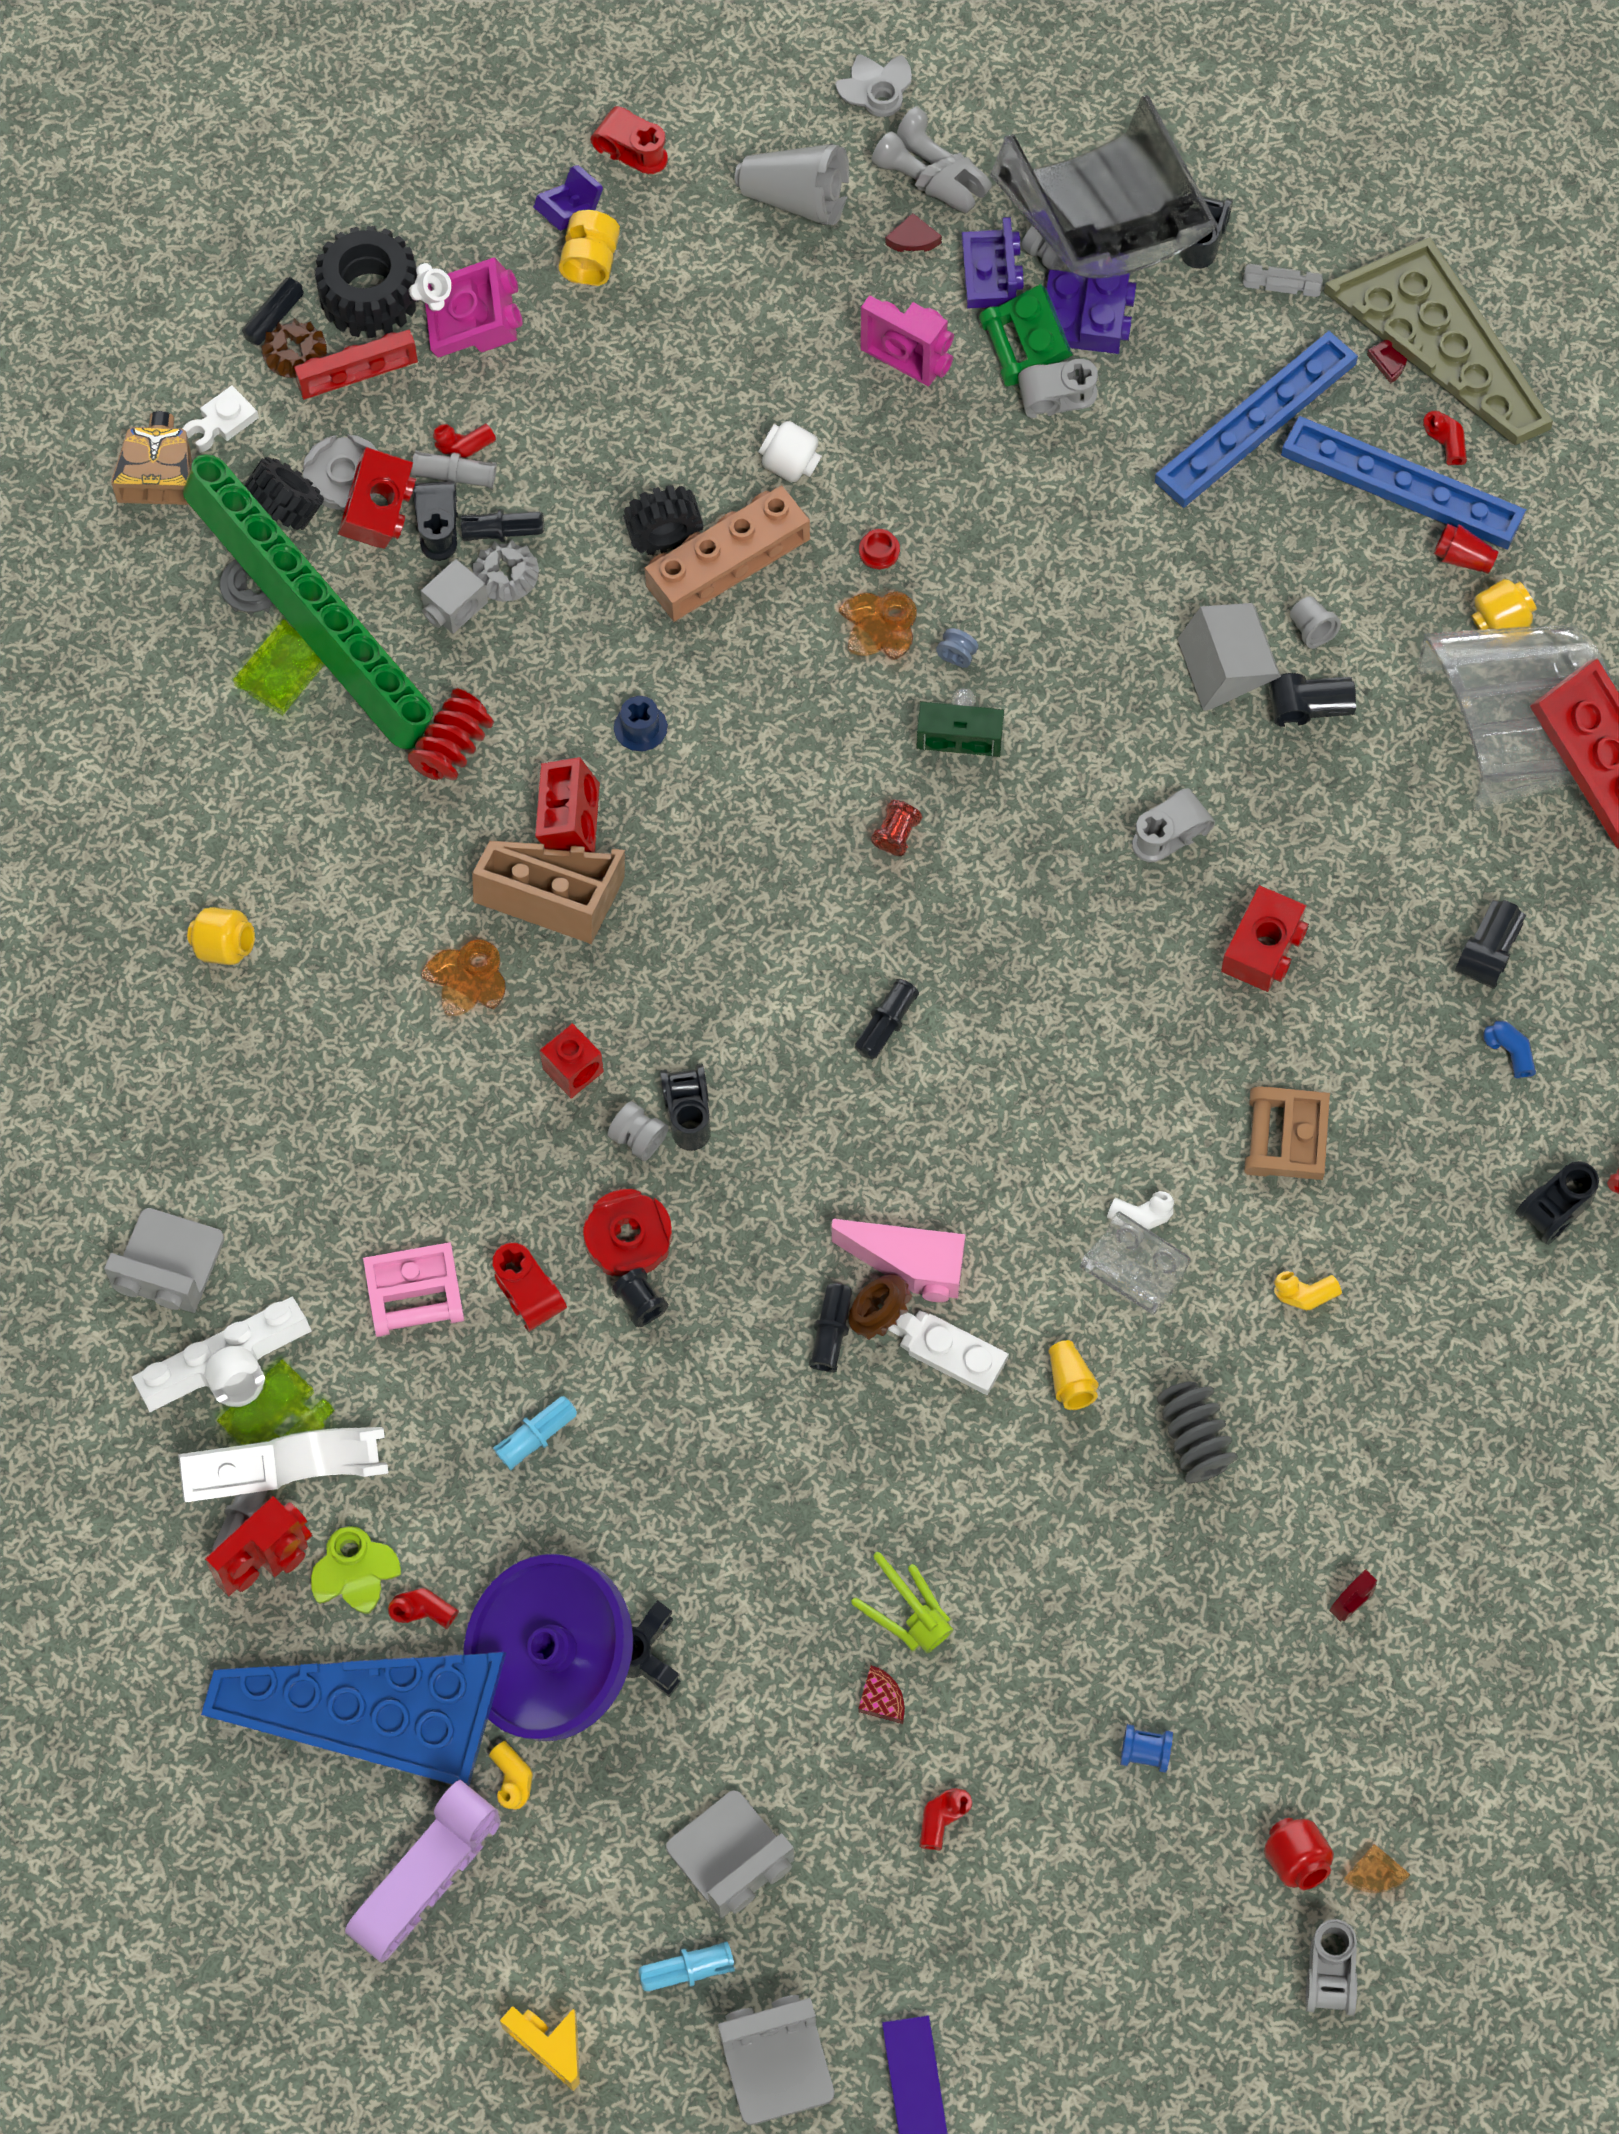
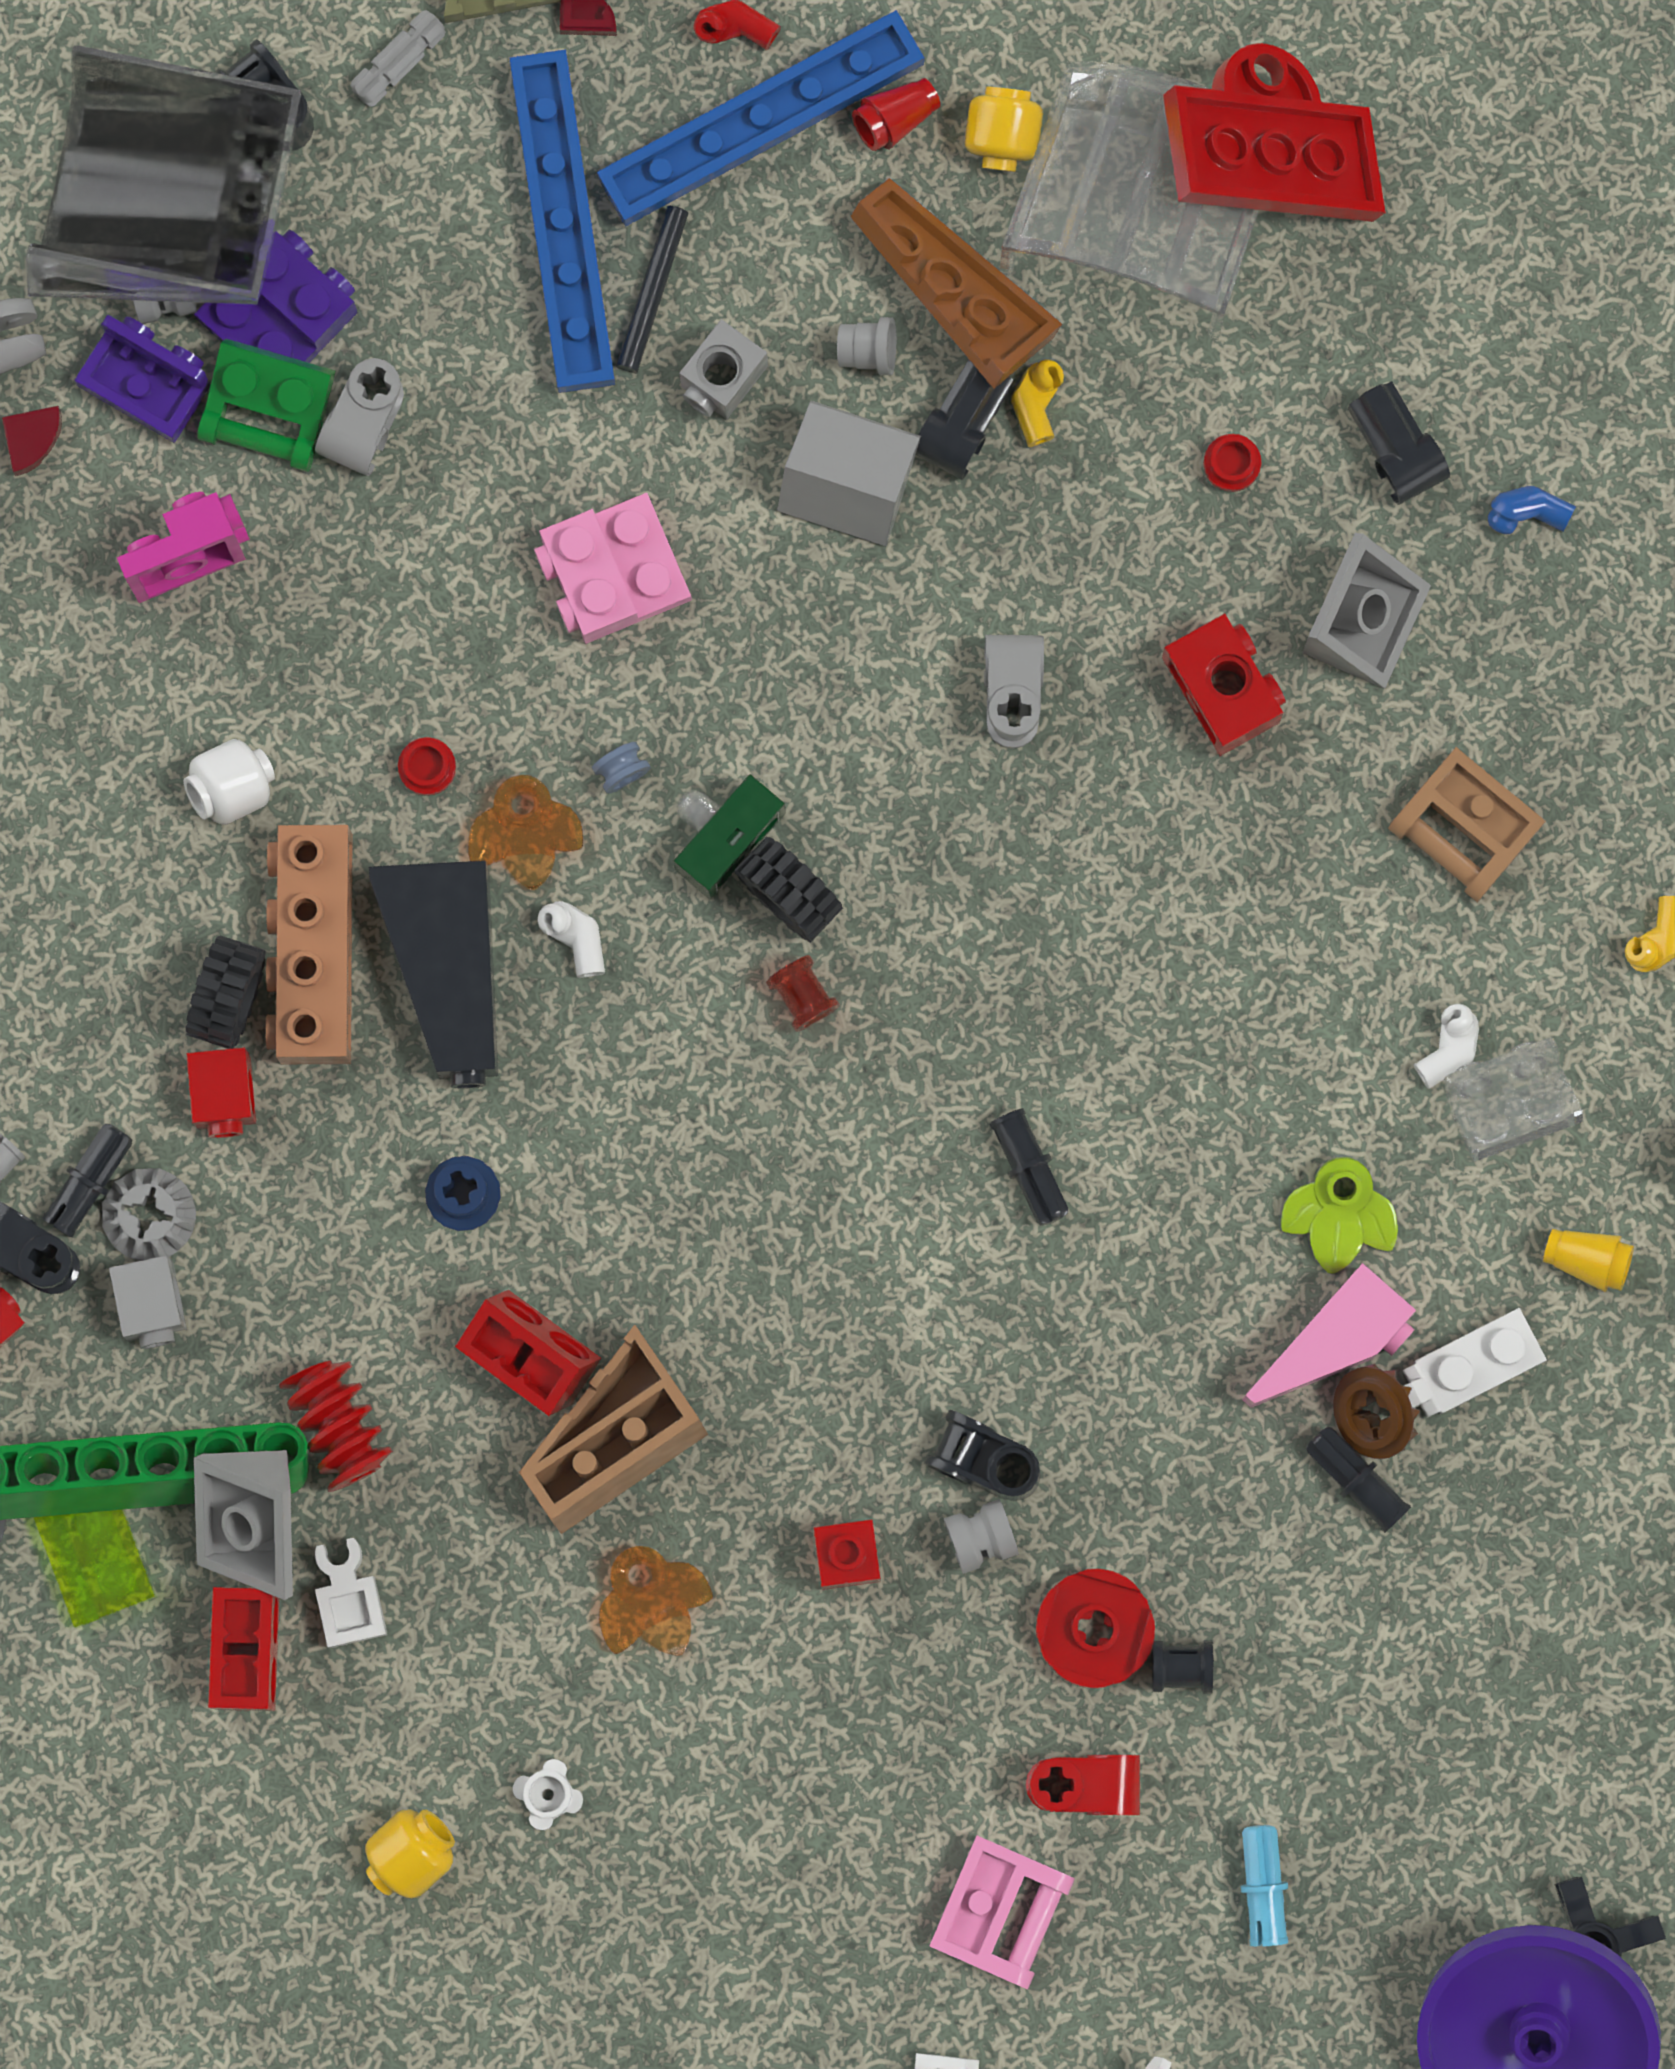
camera: 55 degrees left, 15 degrees up
(281, 769) = (243, 1650): none -> red brick
(304, 982) = (545, 1811): none -> white plate
(351, 814) = (351, 1605): none -> white plate
(359, 715) = (245, 1518): none -> light grey slope
(605, 558) = (221, 1091): none -> red brick
(770, 627) = (445, 952): none -> black slope
(842, 687) = (576, 931): none -> white arm
(951, 774) = (788, 889): none -> black tyre
(985, 1219) = (1340, 1223): none -> lime plate
(1071, 570) = (612, 568): none -> bright pink plate
(1244, 540) = (726, 347): none -> light grey brick
(1255, 492) = (652, 289): none -> black bar
(1355, 730) = (1033, 396): none -> yellow arm
(1372, 988) = (1367, 613): none -> light grey slope
(1387, 644) = (963, 291): none -> dark orange wing
(1405, 863) = (1232, 462): none -> red plate

